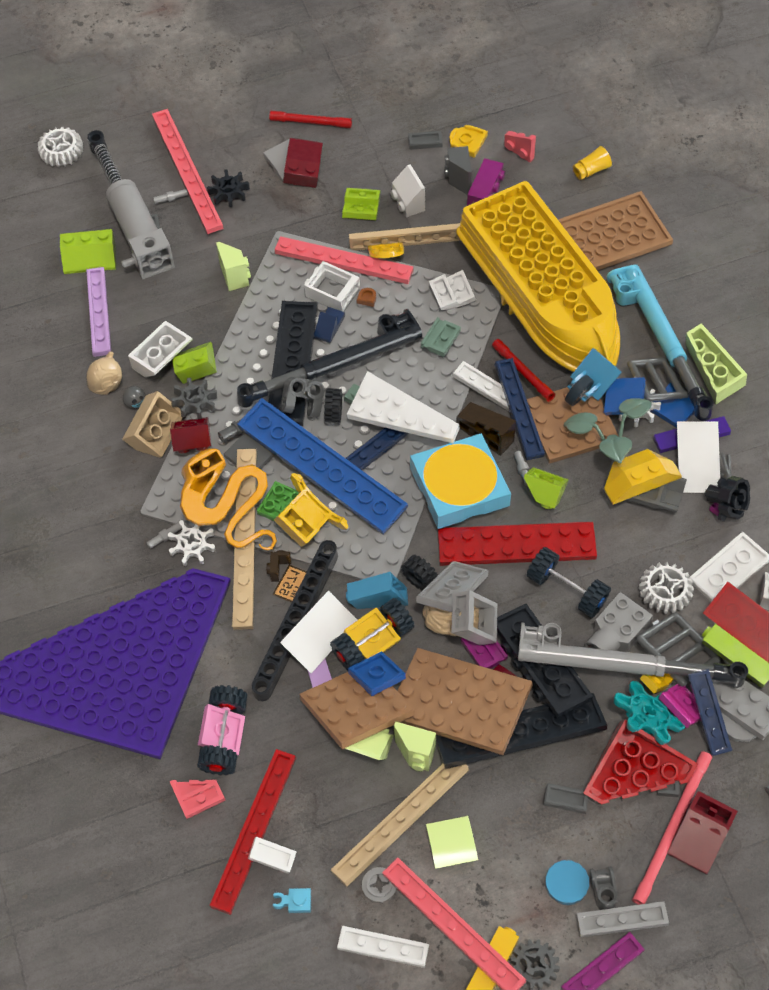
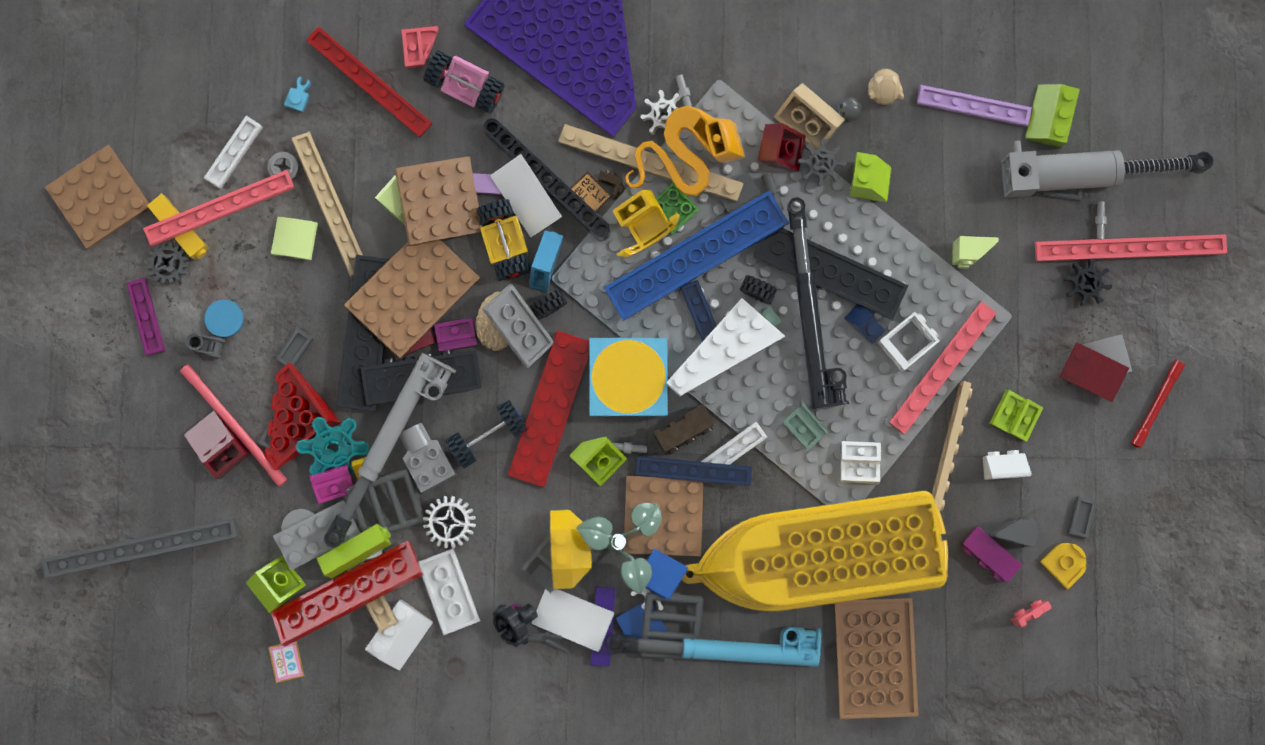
camera: 105 degrees right, 25 degrees up
(64, 147) = (1199, 116): white gear -> none
(158, 349) = (891, 146): white slope -> none
(272, 855) = (340, 88): white tile -> none
(304, 385) = (784, 258): dark grey piece -> none
(367, 297) = (886, 374): dark orange tile -> none
(376, 673) = (461, 228): blue tile -> none
(386, 250) = (937, 415): yellow tile -> none
(415, 745) = (383, 236): yellowish green slope -> none
(463, 624) = (484, 320): light grey window -> none
(541, 387) = (706, 500): red piece -> none
(591, 378) = (689, 554): dark azure plate -> none
(593, 163) = (975, 680): yellow plant -> none
(622, 919) = (175, 348): light grey plate -> none
(709, 712) = (313, 499): dark blue tile -> none
(715, 364) = (664, 684): yellowish green wedge -> none

